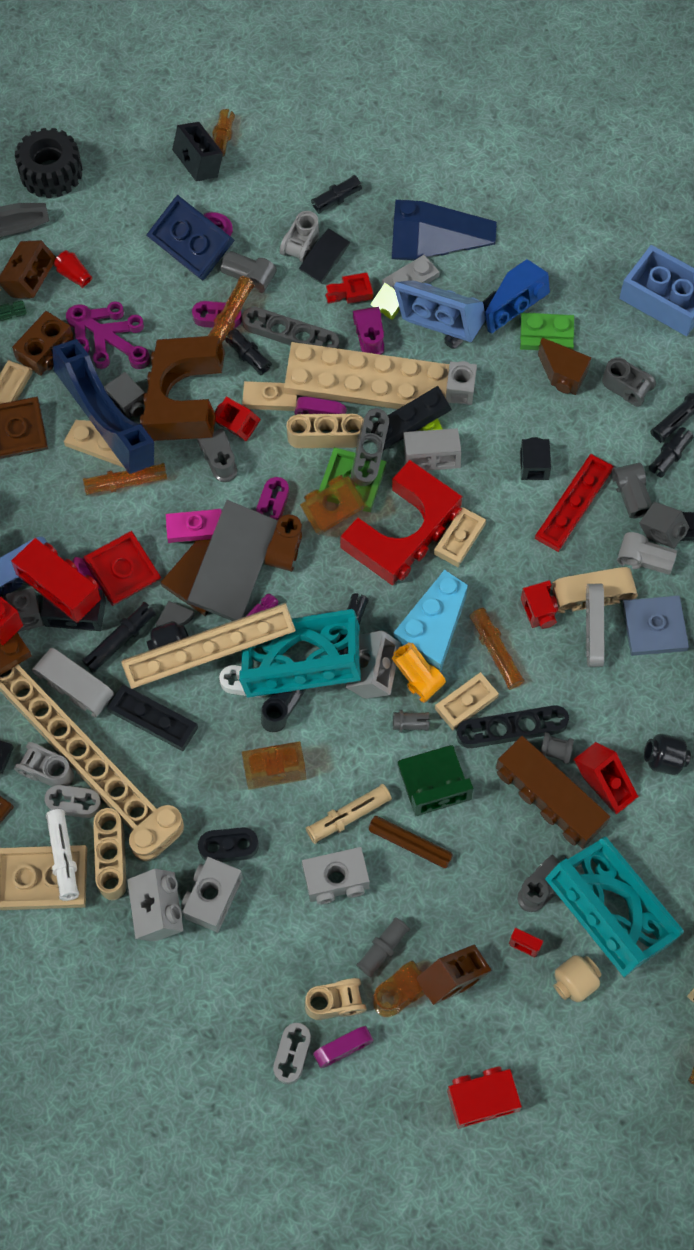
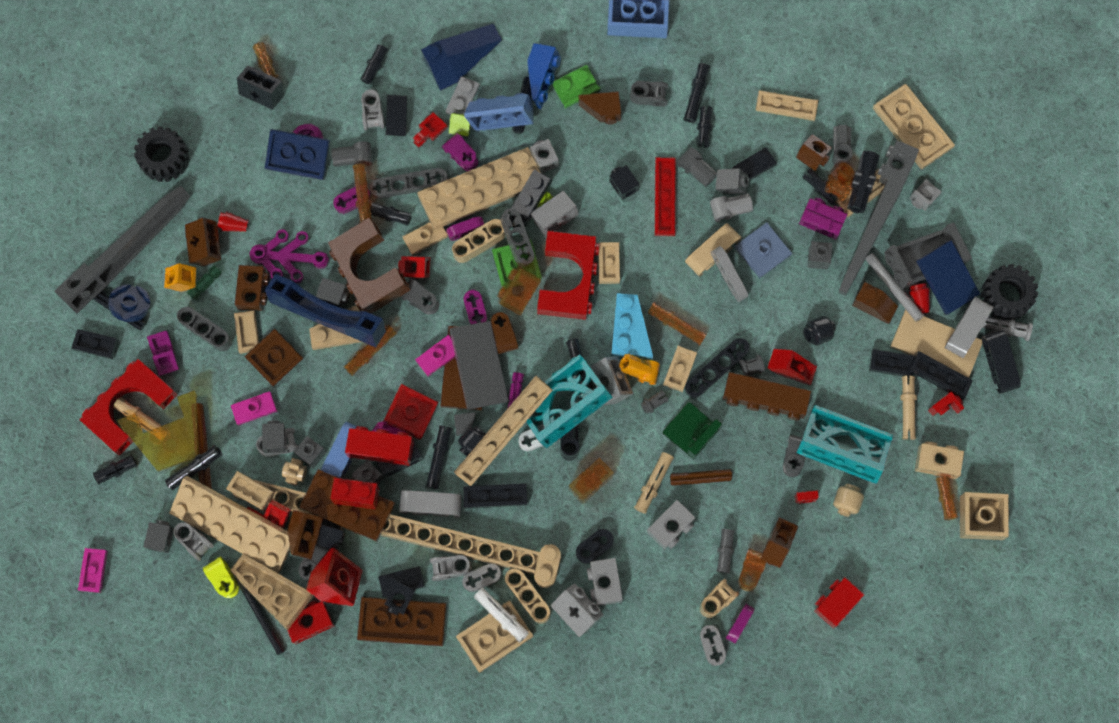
camera: 30 degrees left, 10 degrees up
(540, 605) = (687, 280): red brick -> none

